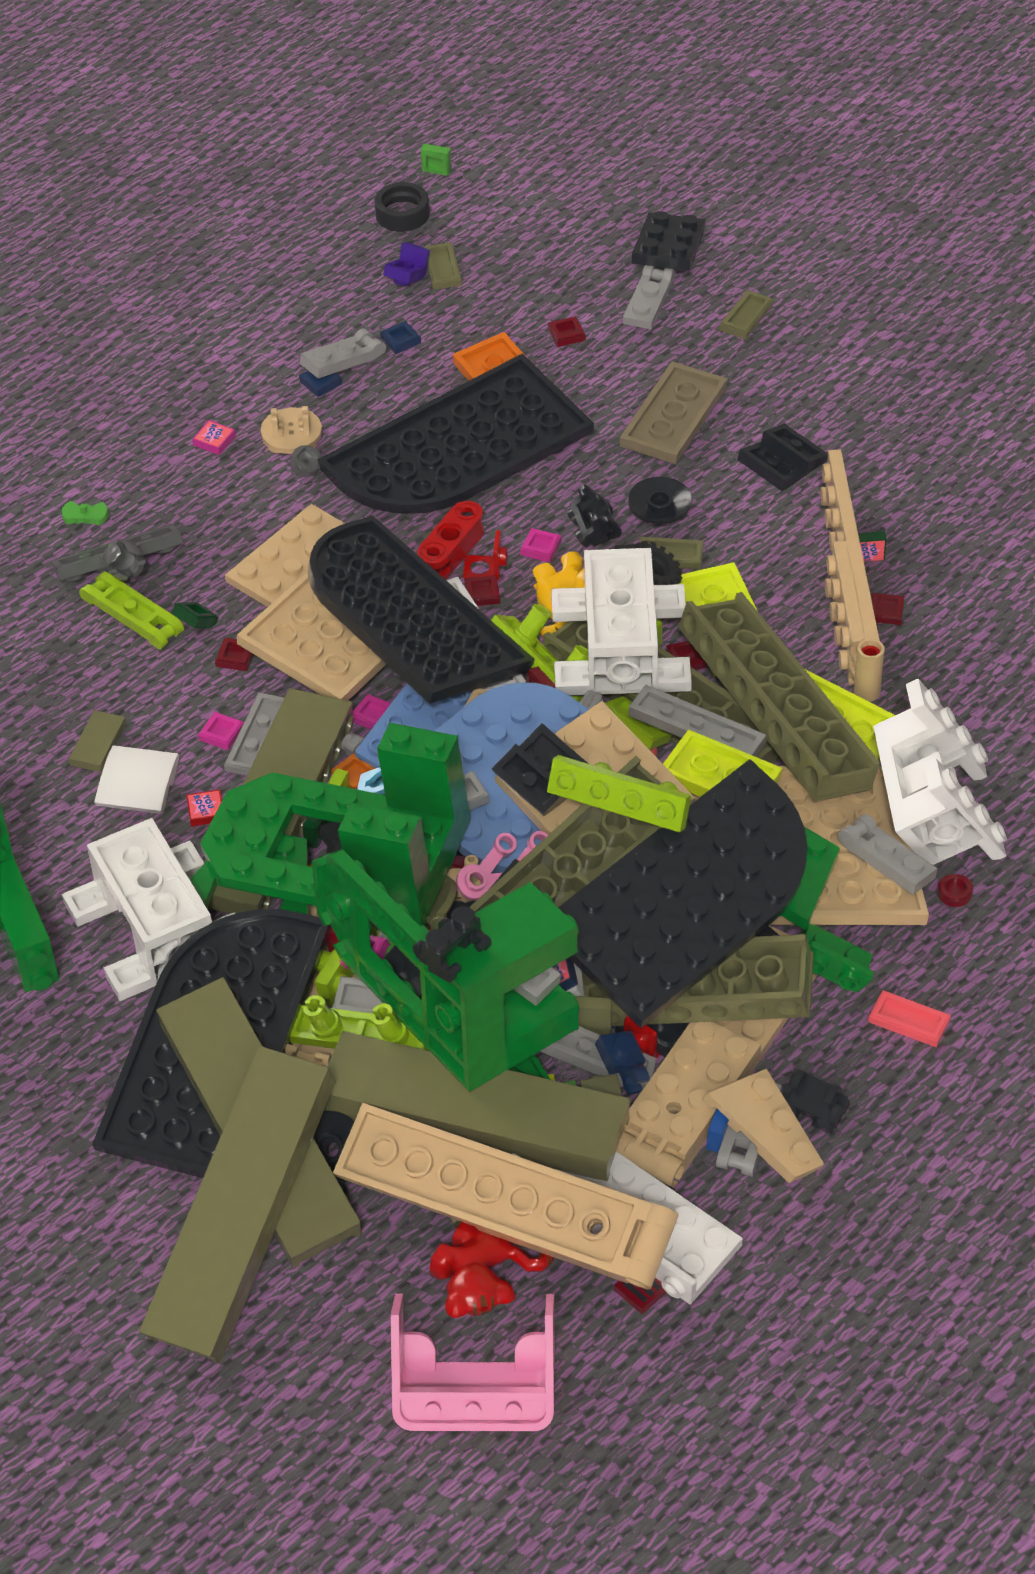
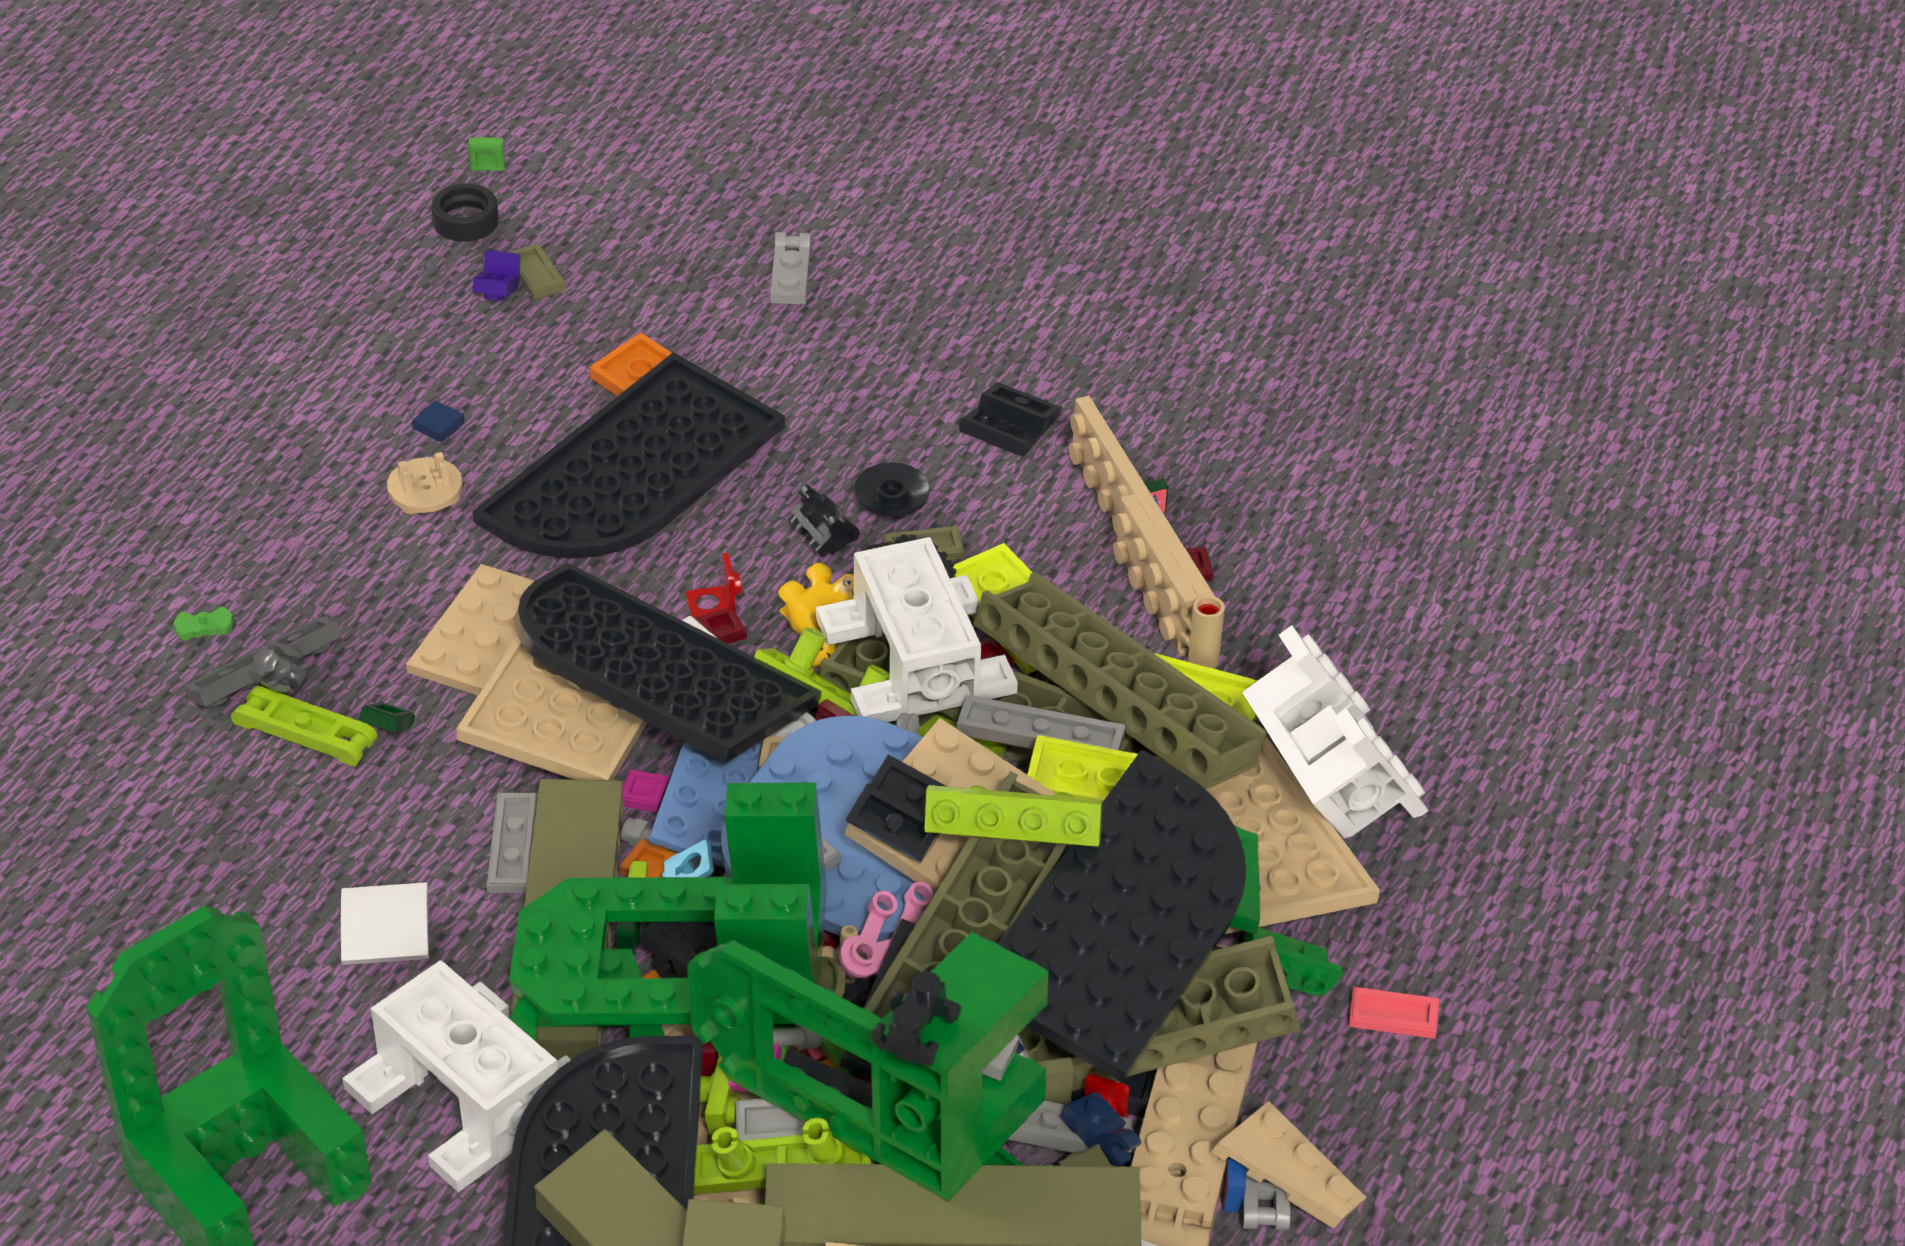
camera: 20 degrees left, 5 degrees down
(97, 740) = (317, 888): olive tile -> none
(203, 806) = (481, 940): tile -> none
(214, 437) = (332, 508): tile -> none
(221, 731) = (467, 846): dark pink tile -> none
(233, 656) = (450, 755): dark red tile -> none
(305, 461) = (455, 516): dark grey tile -> none
(342, 354) = (456, 388): light grey plate -> none
(400, 337) = (516, 358): dark blue tile -> none
(453, 538) = (668, 570): red piece -> none
(540, 545) = (770, 564): dark pink tile -> none
(566, 331) = (709, 321): dark red tile -> none
(668, 241) = (792, 203): black plate -> none
(673, 412) = (869, 390): dark tan plate -> none
(746, 314) = (908, 270): olive tile -> none
(816, 1100) = (1332, 1126): black piece -> none
(887, 854) = (1308, 832): light grey plate -> none
(955, 890) = (1388, 859): dark red tile -> none

